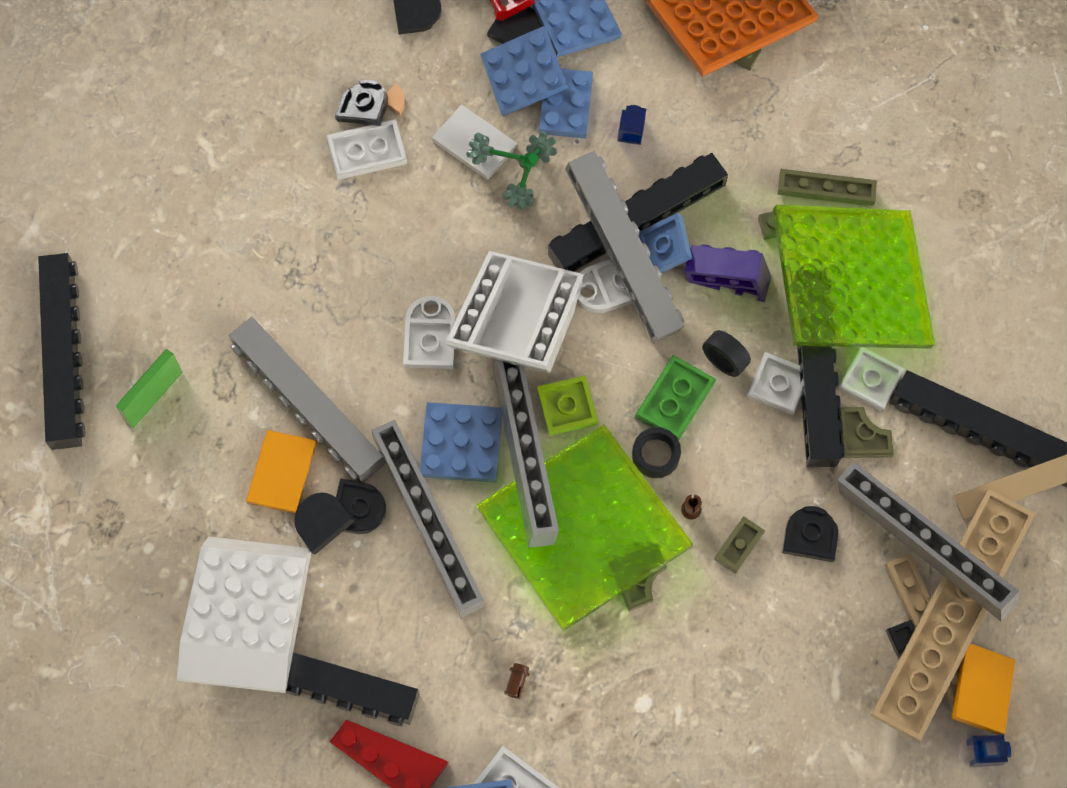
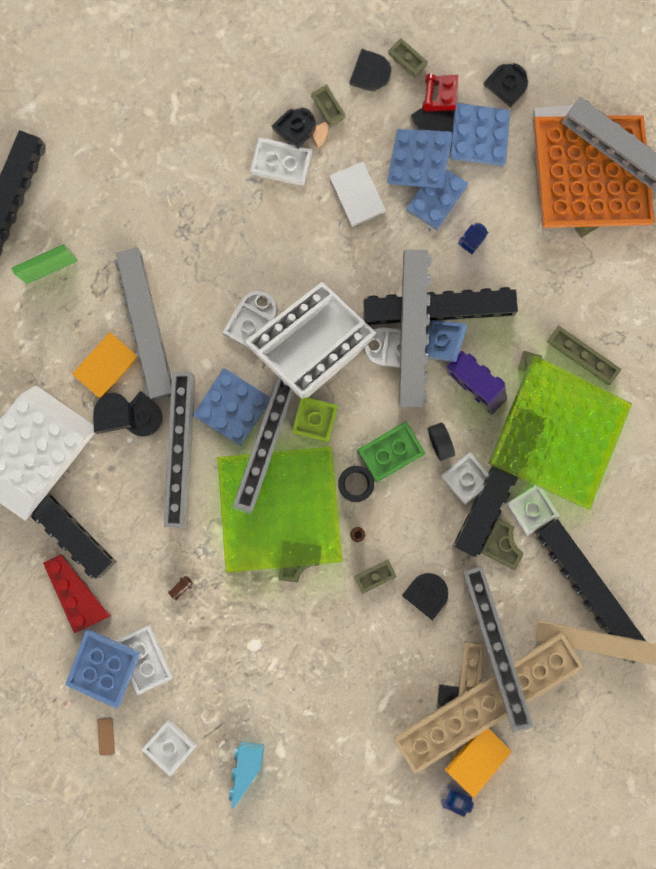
camera: 35 degrees right, 15 degrees up
(388, 65) = (328, 105): none -> olive plate
(539, 148) = (365, 249): sand green plant -> none

